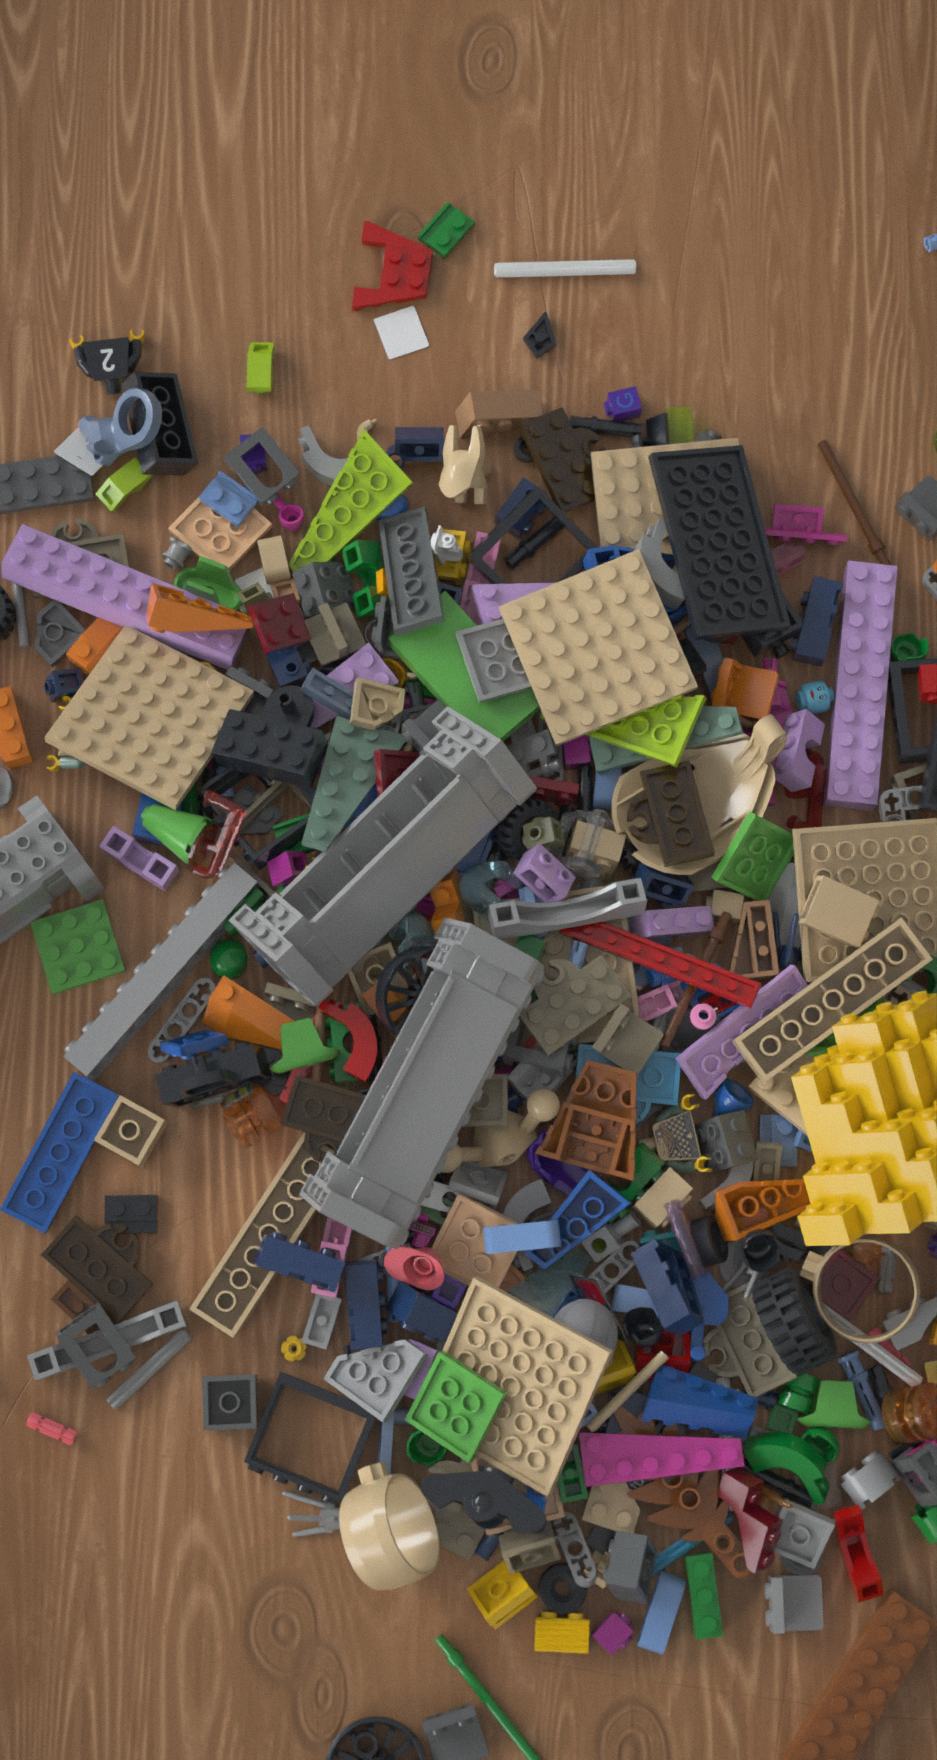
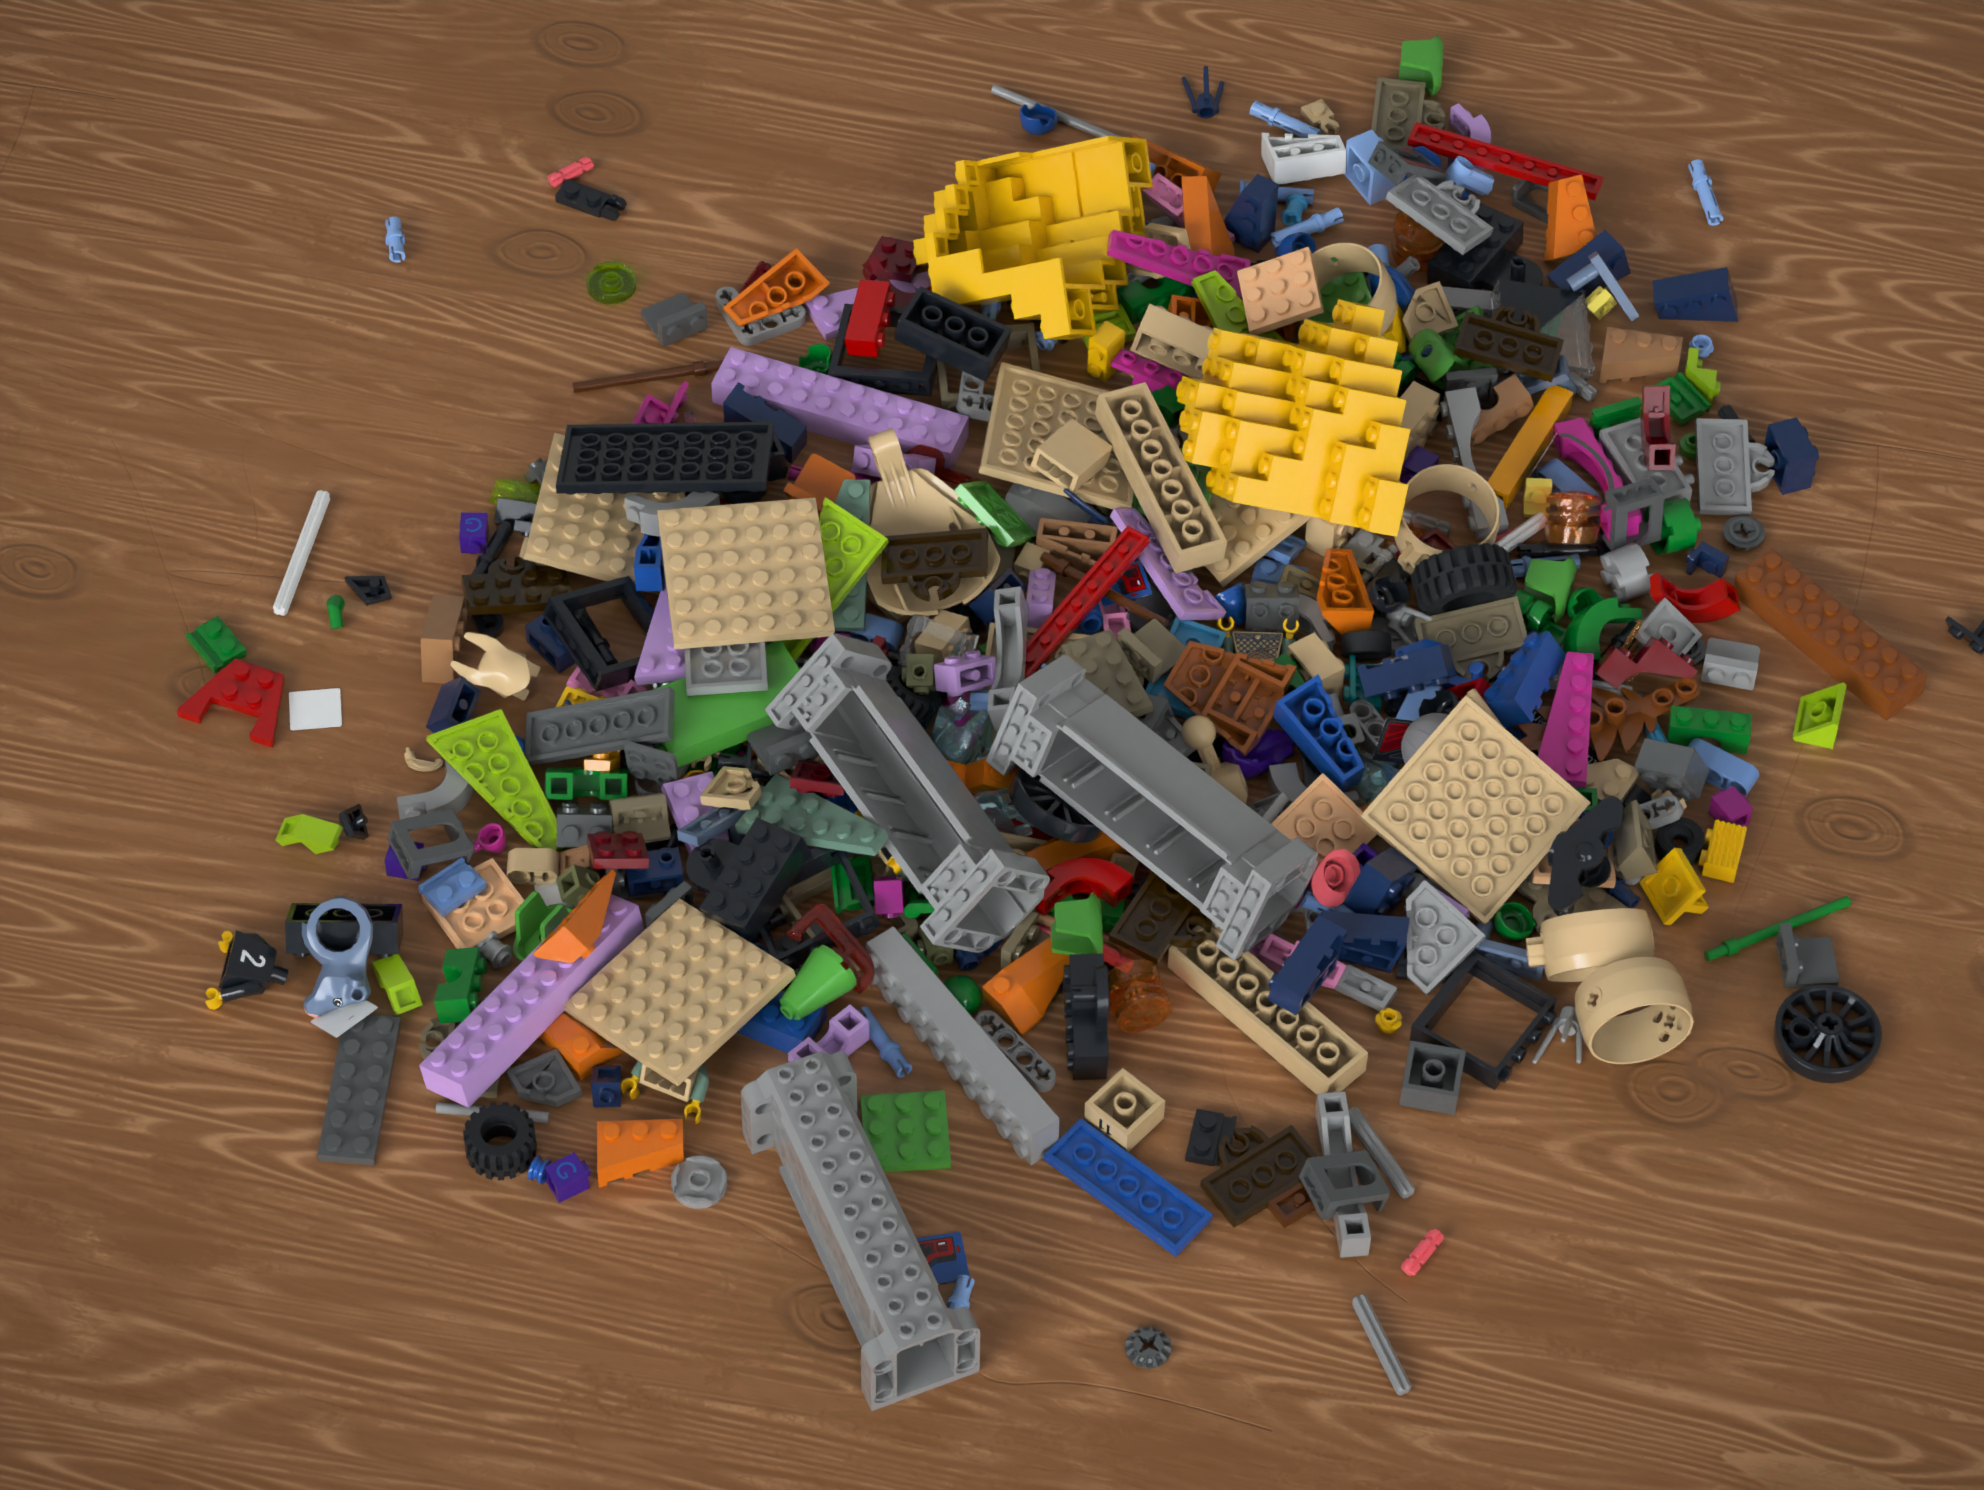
camera: 75 degrees left, 25 degrees down
(106, 539) = (464, 980): none -> green arch
(162, 904) = (888, 1049): none -> medium blue pin
(190, 1044) = (1047, 1027): blue plate -> none
(228, 1099) = (1117, 997): clear light blue piece -> none
(283, 399) = (354, 822): none -> black piece
(327, 1581) = (1628, 986): none -> tan cylinder
(445, 546) = (582, 688): white hinge -> none
(456, 1406) = (1484, 866): bright green plate -> none
(506, 314) = (335, 607): none -> green arm
(522, 1237) = (1328, 771): medium blue beam -> none
(681, 1229) = (1351, 647): clear purple pin -> none
(700, 1023) = (1145, 588): bright pink plate -> none
(751, 1704) = (1820, 716): none -> lime slope
(814, 697) = (840, 446): medium azure head -> none
(915, 1562) = (1707, 558): none -> dark blue bracket

